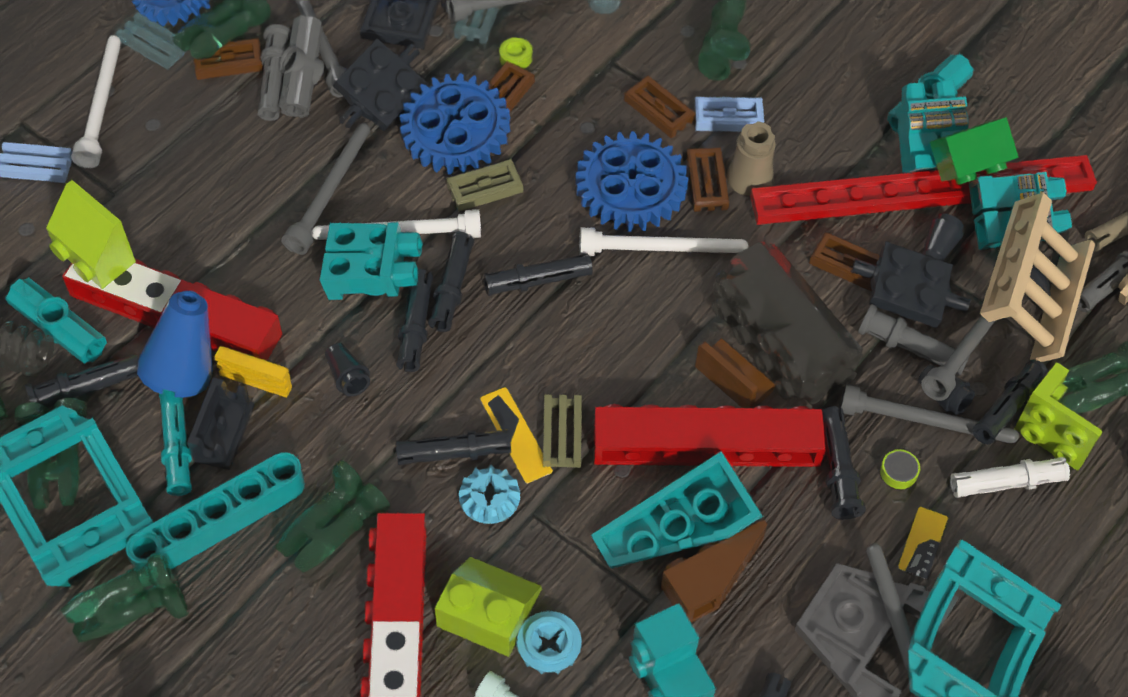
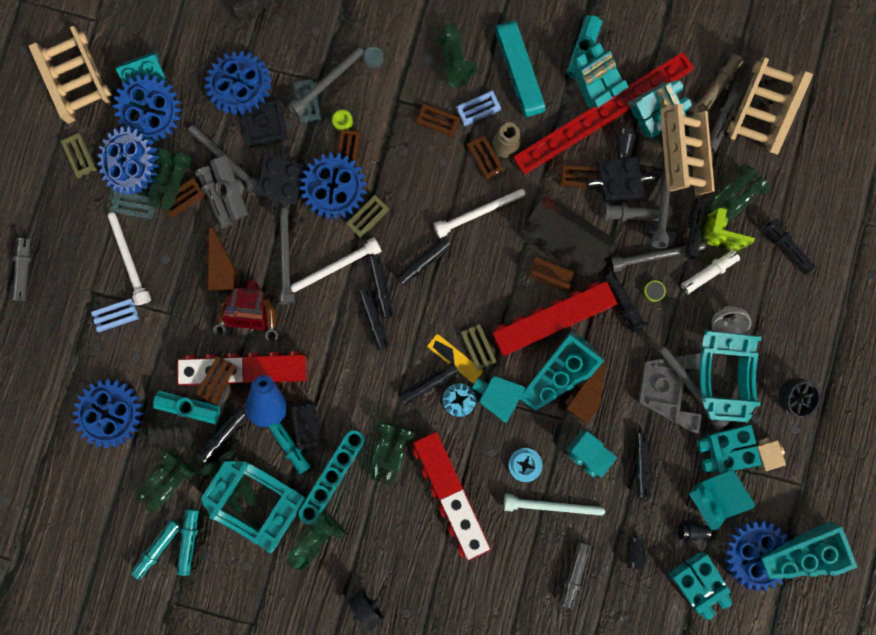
camera: 25 degrees left, 25 degrees up
(89, 237) = (182, 363): lime slope -> none
(121, 286) = (200, 391): none -> reddish brown tile
(224, 164) = (222, 272): none -> reddish brown slope
(228, 224) = (246, 309): none -> torso
(253, 371) = (306, 388): yellow tile -> none
(347, 370) = (355, 366): black cone -> none
(368, 259) = (339, 294): teal hips -> none
(486, 605) = (487, 459): lime slope -> none
(559, 513) = (499, 396): none -> teal torso
(628, 180) = (439, 163): blue gear -> none
(817, 87) = (520, 68): none -> teal beam
(923, 542) = (679, 325): yellow sticker -> none
(973, 150) = (627, 86): green brick -> none
(1035, 568) = (738, 323): none -> light grey piece

